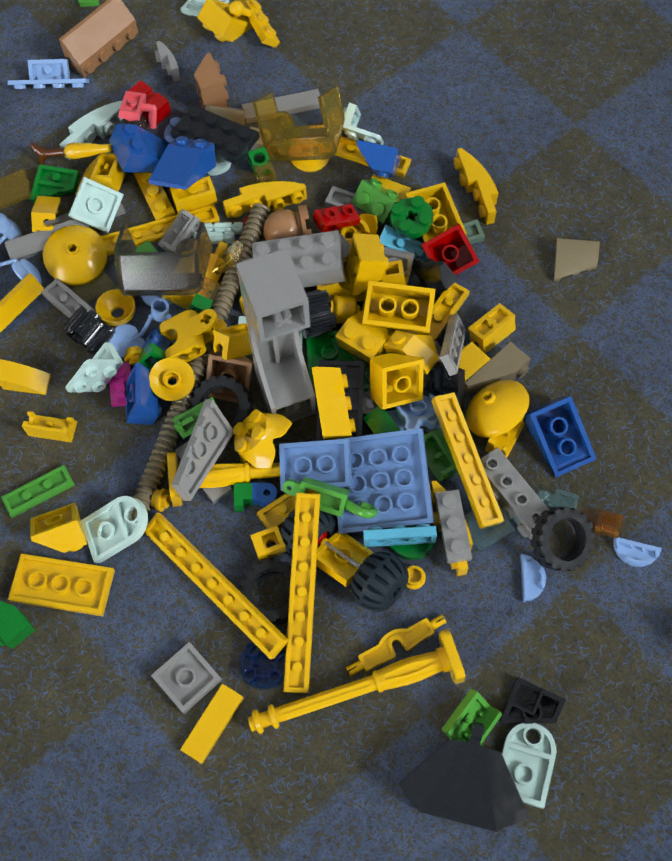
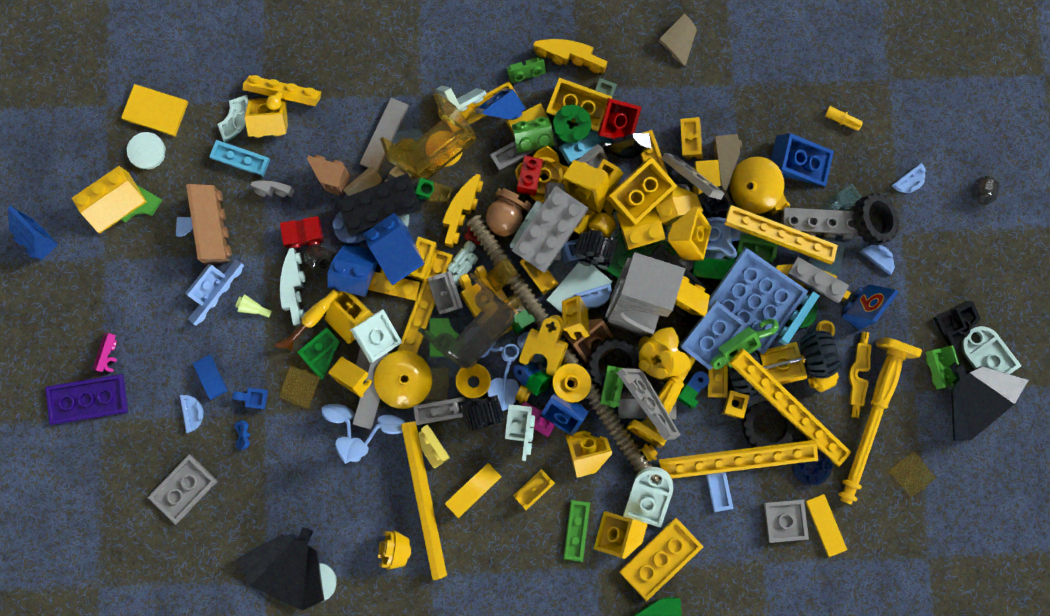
camera: 55 degrees left, 15 degrees up
(32, 316) = (432, 447): none -> light yellow bracket
(54, 108) = (247, 305): none -> yellowish green cone
(116, 443) = (587, 452): none -> yellow slope
(133, 105) = (310, 247): coral plate -> none
(170, 593) = (719, 491): none -> light blue tile
(175, 26) = (239, 158): none -> medium azure plate
(334, 776) = (912, 474): none -> clear yellow piece
(358, 612) = (823, 384): none -> yellow head
(432, 164) = (533, 68): none -> bright green hinge
(468, 595) = (868, 305): none -> blue slope
(609, 524) = (883, 181): clear orange plate -> none
(635, 444) = (843, 118): none -> yellow axle

